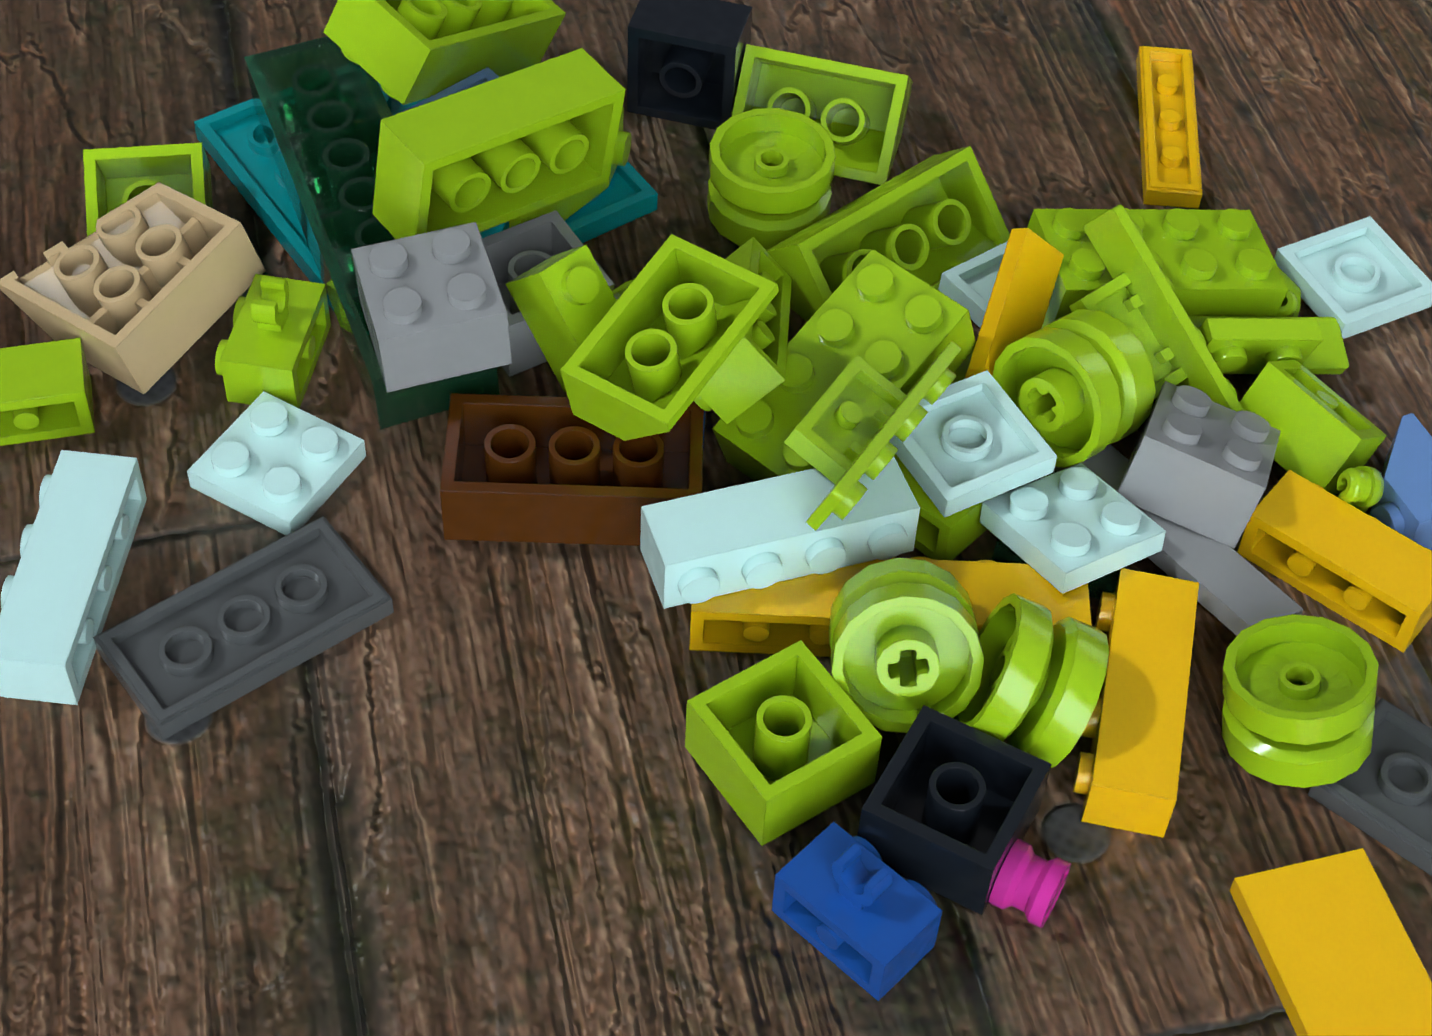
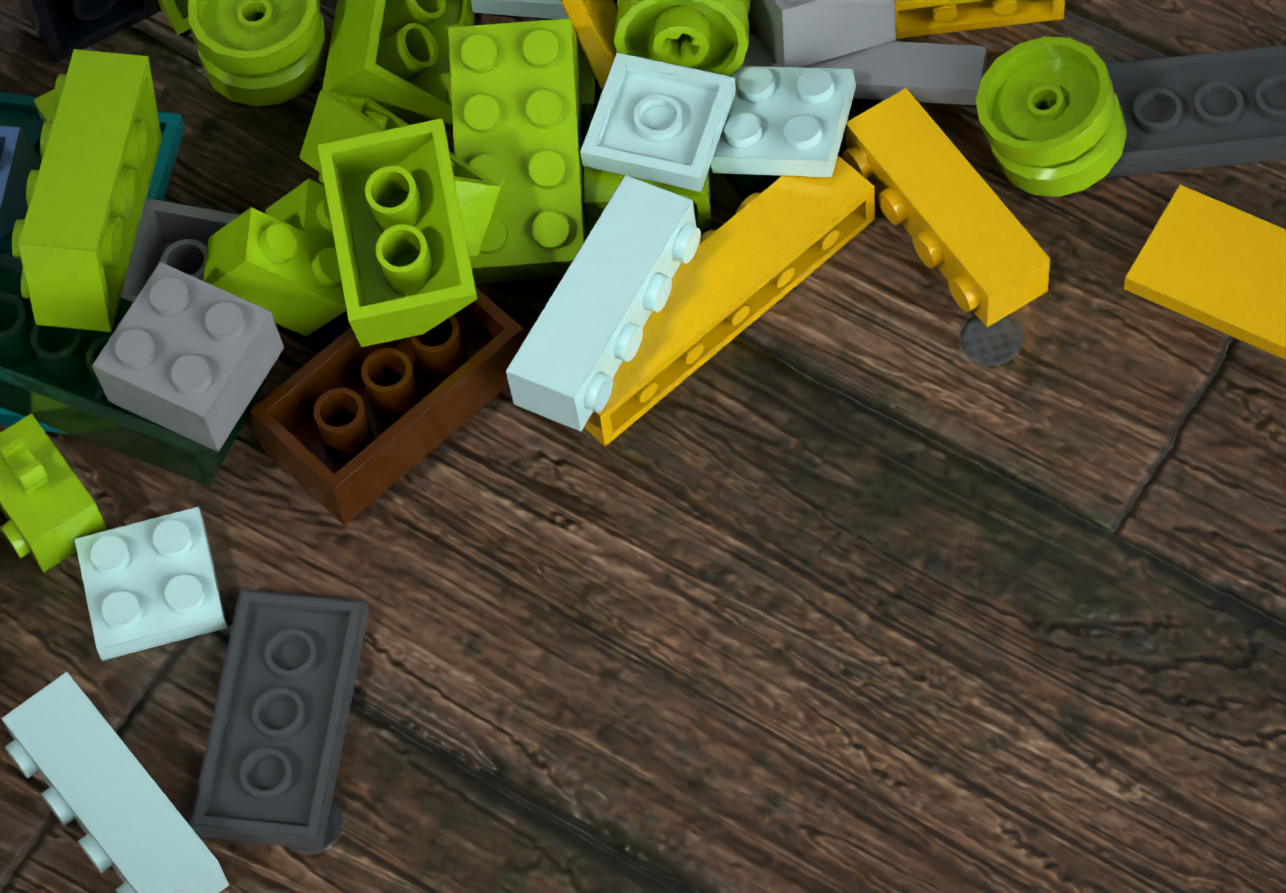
camera: 35 degrees left, 10 degrees up
(782, 742) = (758, 451): lime brick -> none
(854, 422) = (597, 173): lime bracket -> none
(856, 909) = (924, 518): blue brick -> none
(904, 642) = (774, 308): lime wheel -> none
(952, 807) = (916, 394): black brick -> none
(1029, 883) = (1009, 399): dark pink wheel -> none
(1037, 679) = (880, 260): lime wheel -> none

